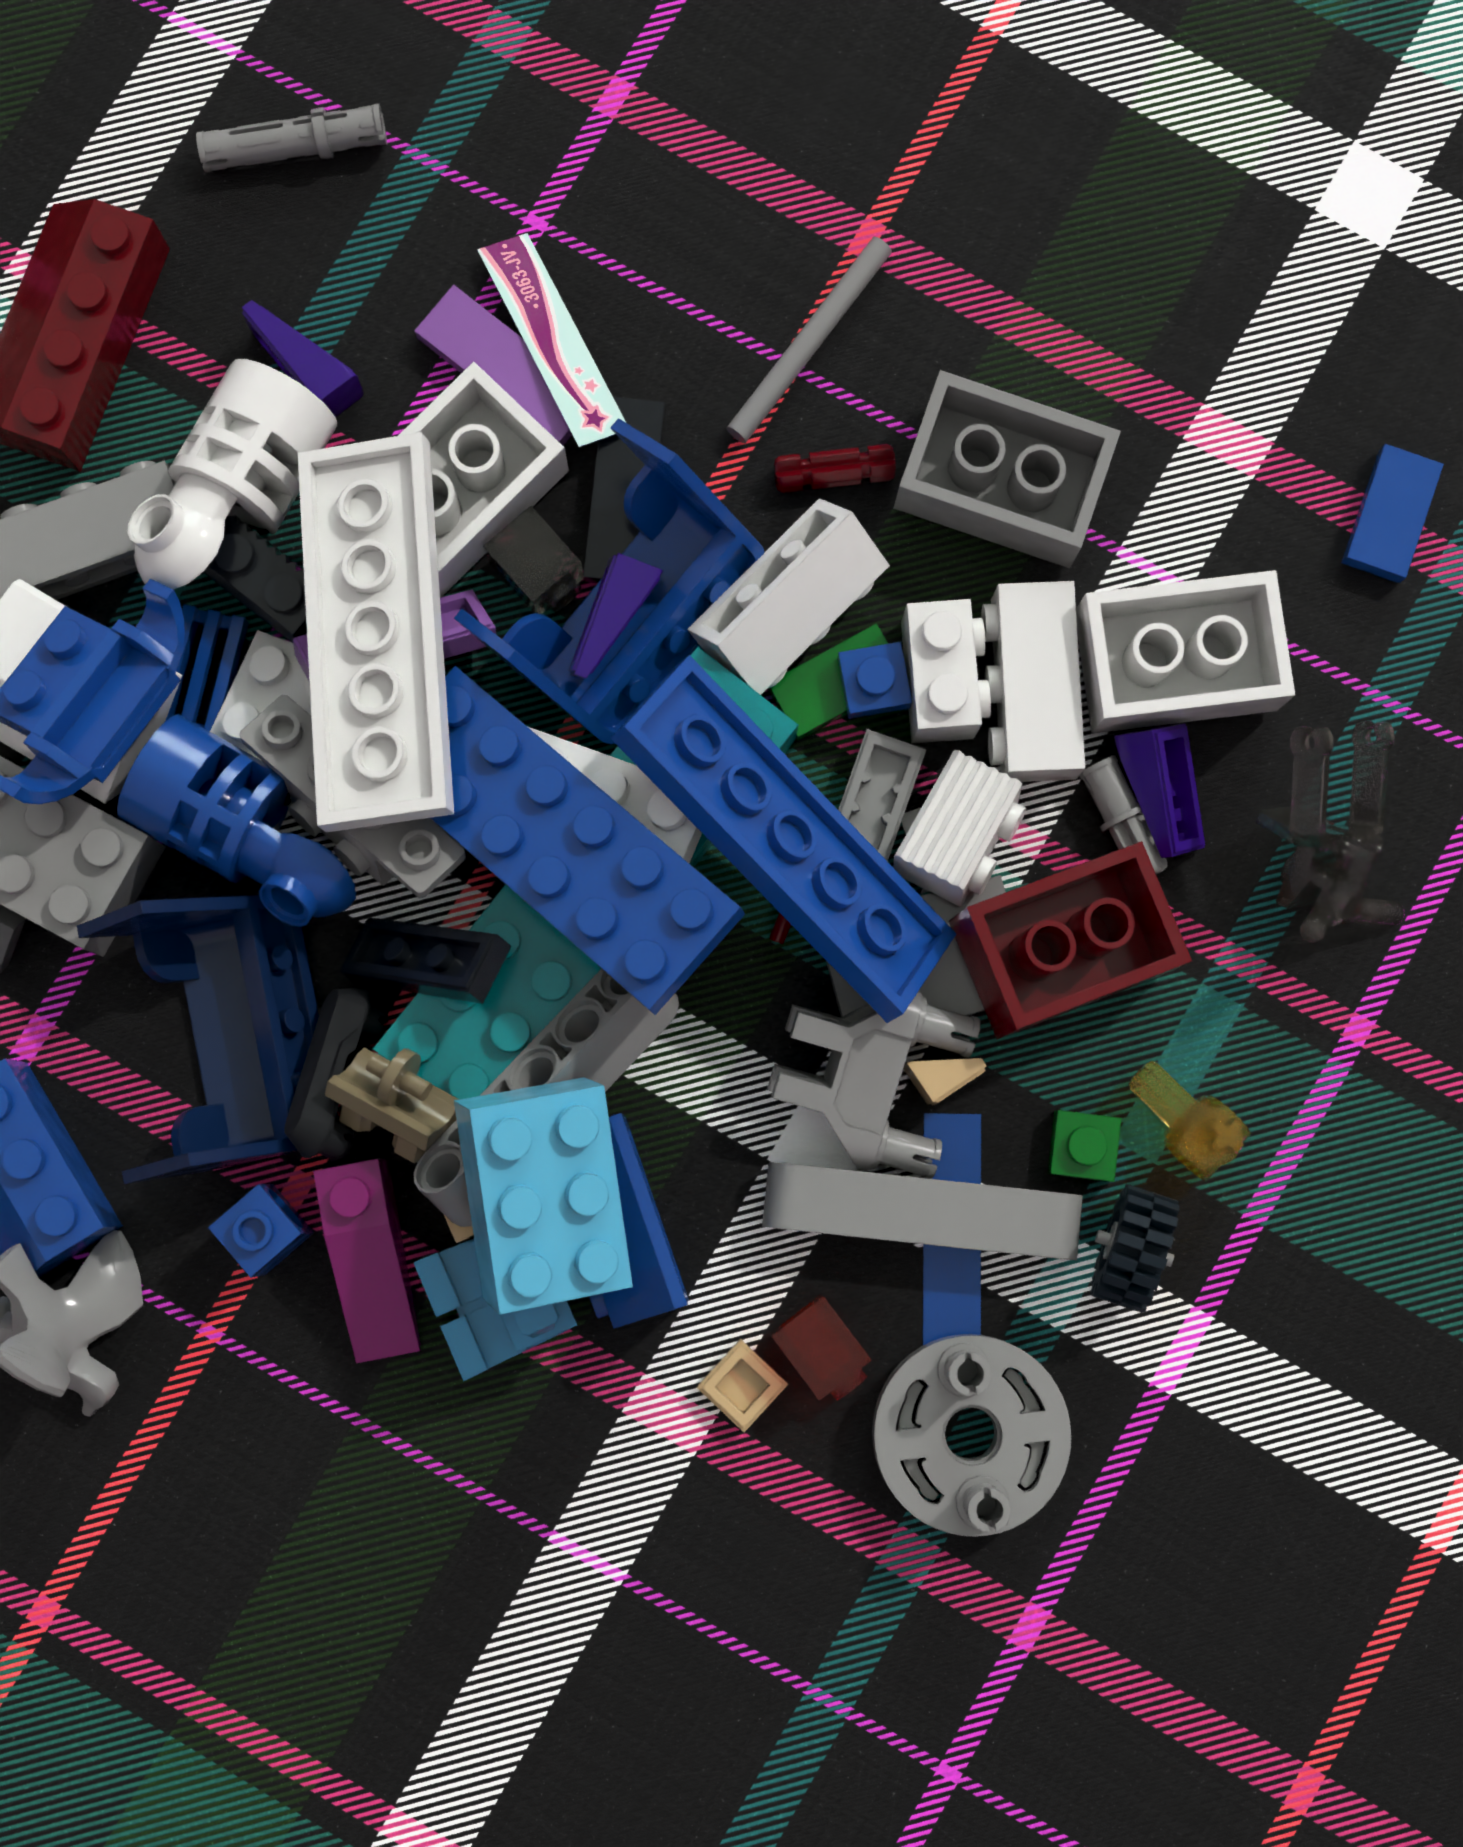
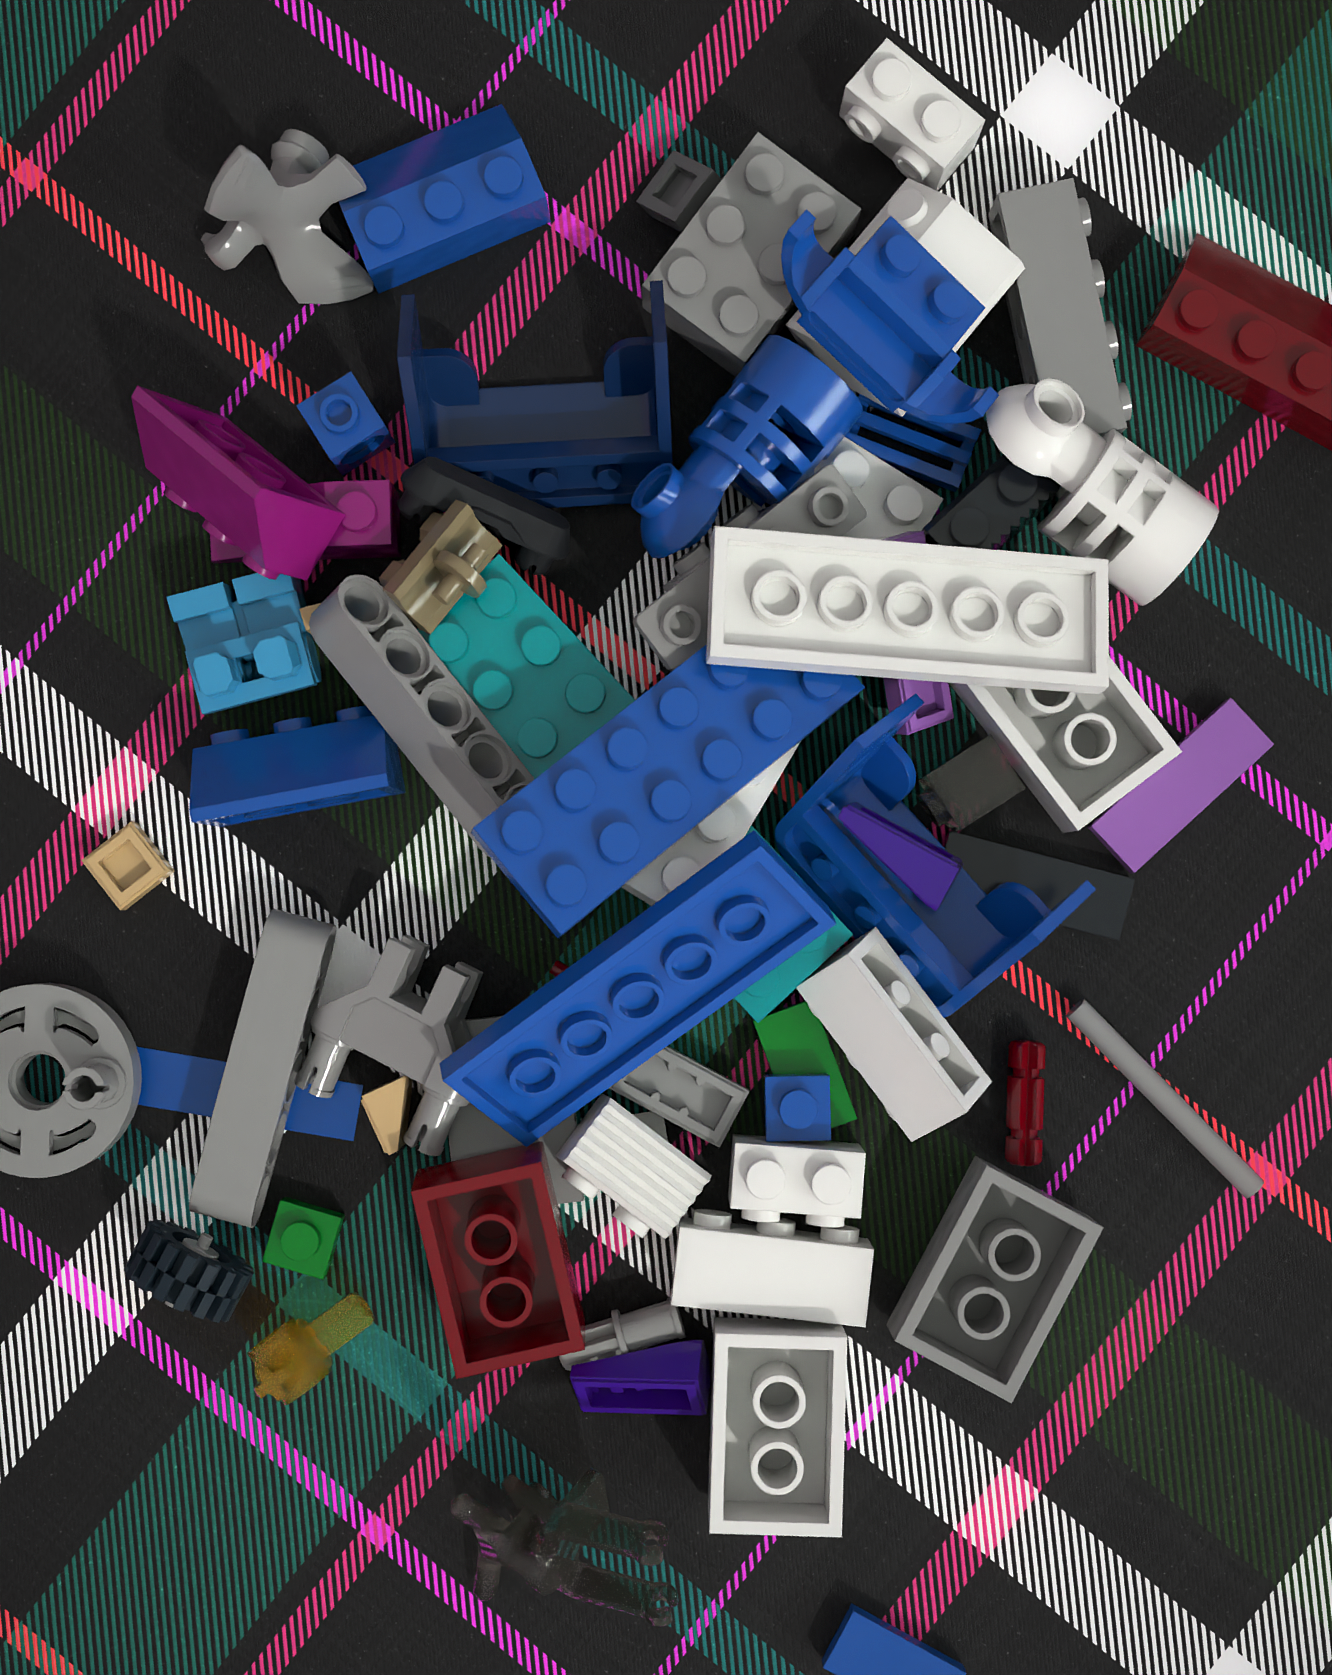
camera: 105 degrees right, 5 degrees up
(304, 360) = (1200, 591): dark purple slope -> none
(342, 1325) = (235, 486): none -> magenta slope
(426, 959) = (578, 618): black tile -> none
(543, 1194) = (316, 697): medium azure brick -> none
(552, 338) = (1201, 836): sticker -> none
(822, 1349) = (146, 947): clear red brick -> none

